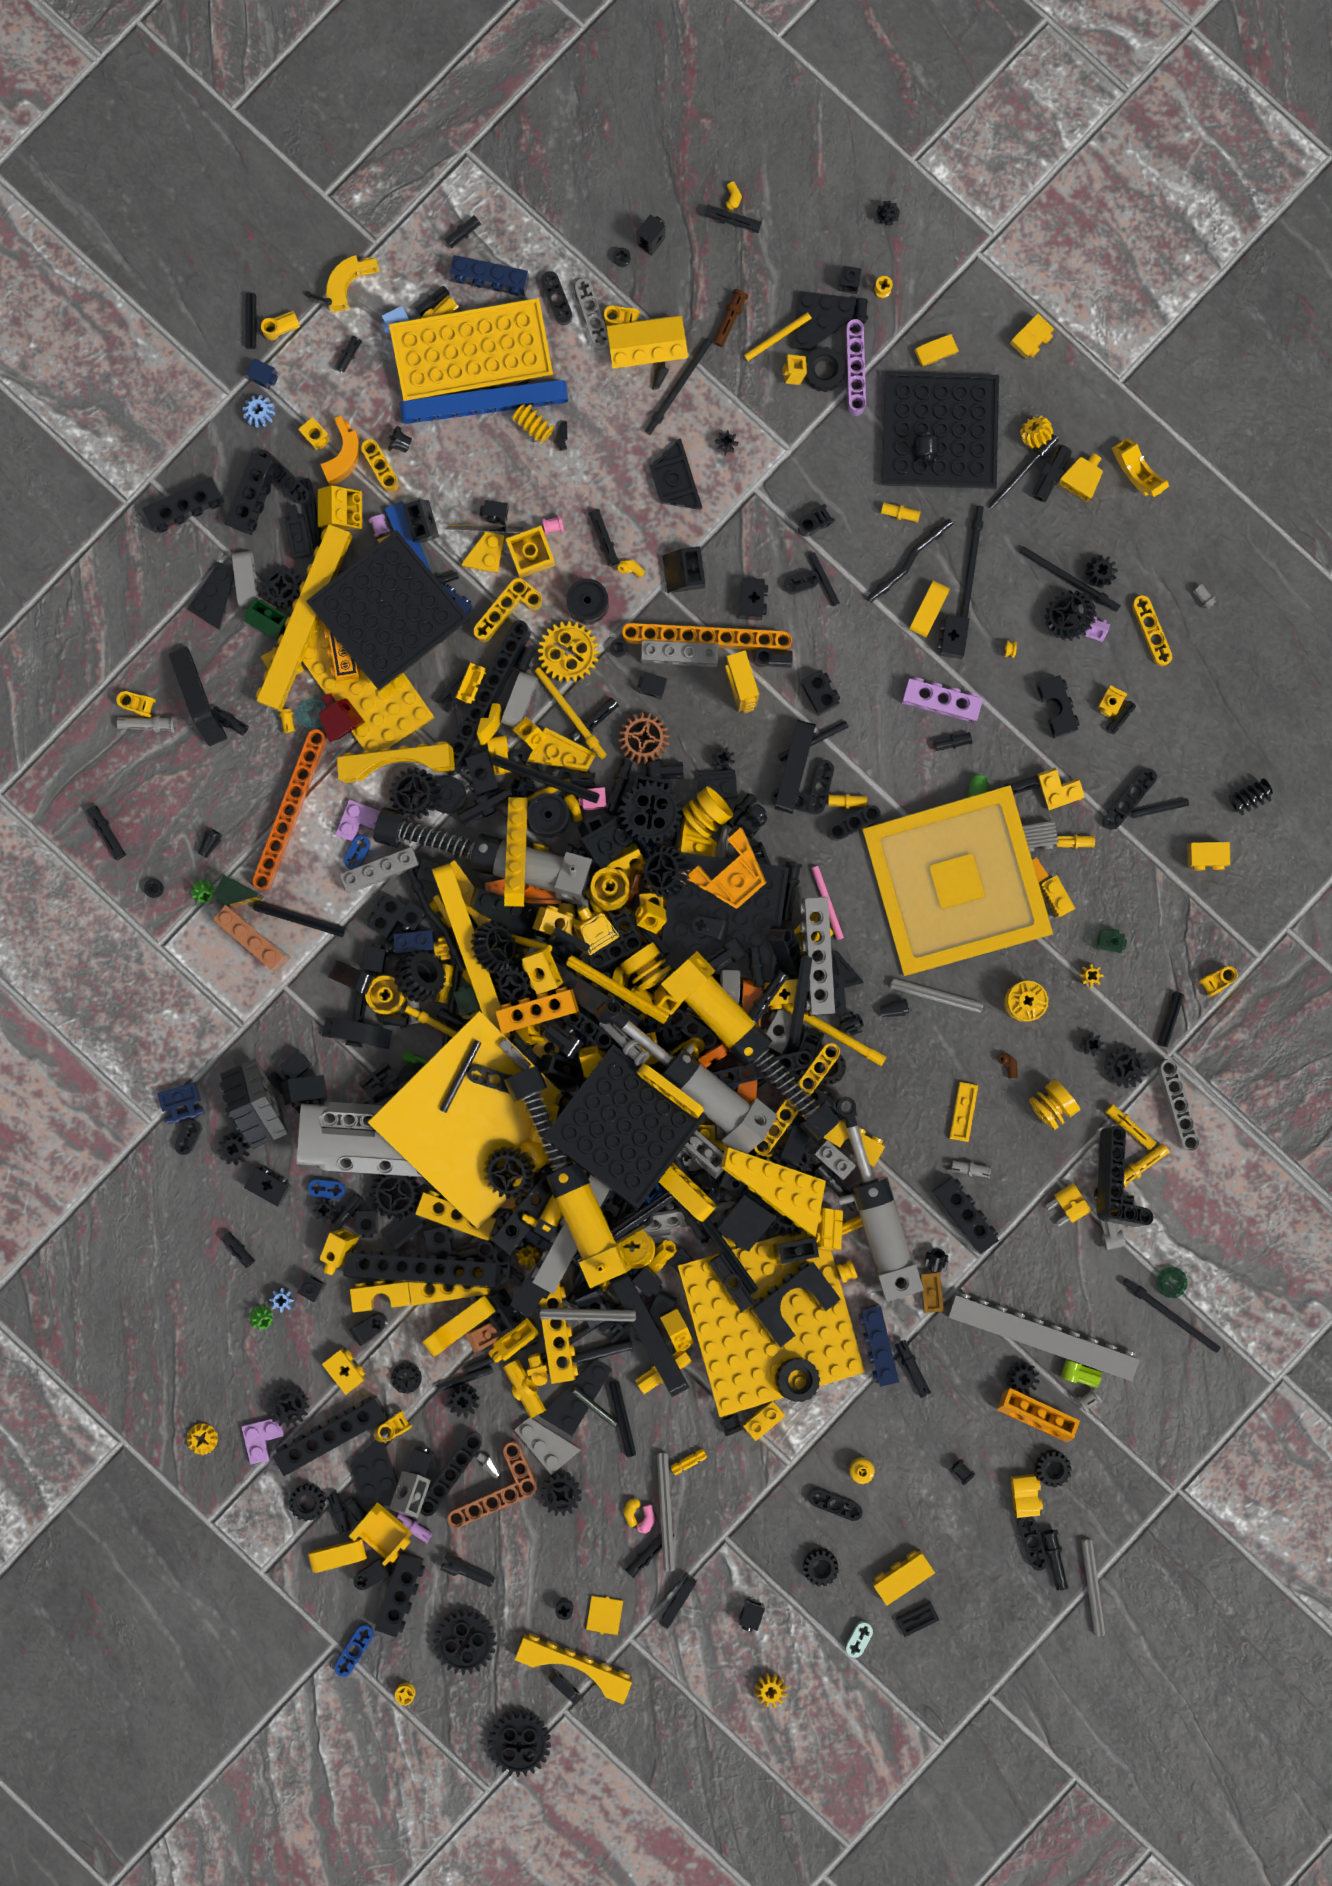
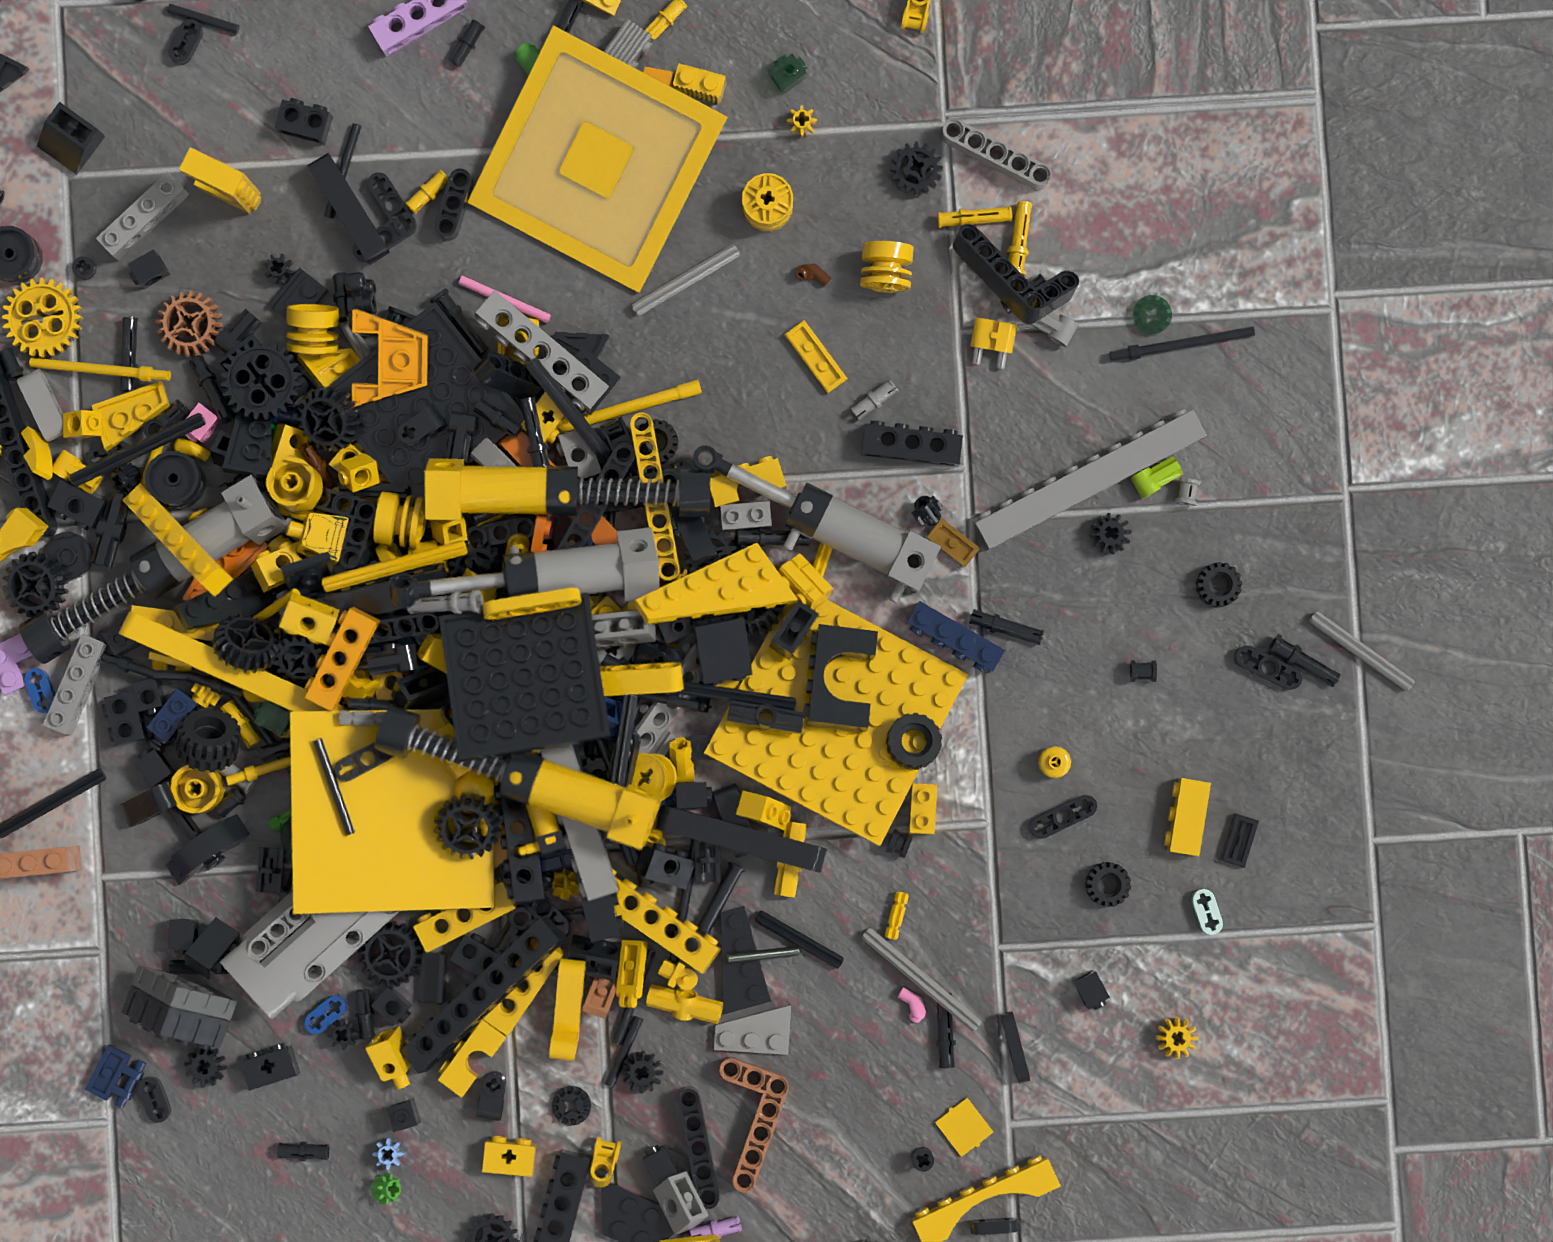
camera: 45 degrees left, 0 degrees up
(458, 1567) = (791, 1221): black piece -> none
(489, 1465) = (724, 1104): light grey bar -> none
(553, 1488) = (802, 1064): black gear -> none
(587, 1314) = (669, 878): light grey axle -> none
(629, 1510) = (889, 1012): yellow arm -> none
(631, 566) = (19, 185): yellow arm -> none
(716, 634) = (155, 164): light orange beam -> none
(751, 610) = (167, 111): black brick -> none
(776, 658) = (232, 131): black piece -> none
(846, 1271) = (859, 603): yellow wheel -> none
(851, 1023) = (636, 382): black gear -> none
(895, 1008) = (661, 328): black cone -> none
(1025, 1495) = (1220, 633): yellow brick -> none
(1038, 1415) = (1156, 551): light orange brick -> none
(1086, 1045) = (861, 185): black gear -> none
(1170, 1019) = (911, 87): black axle -> none

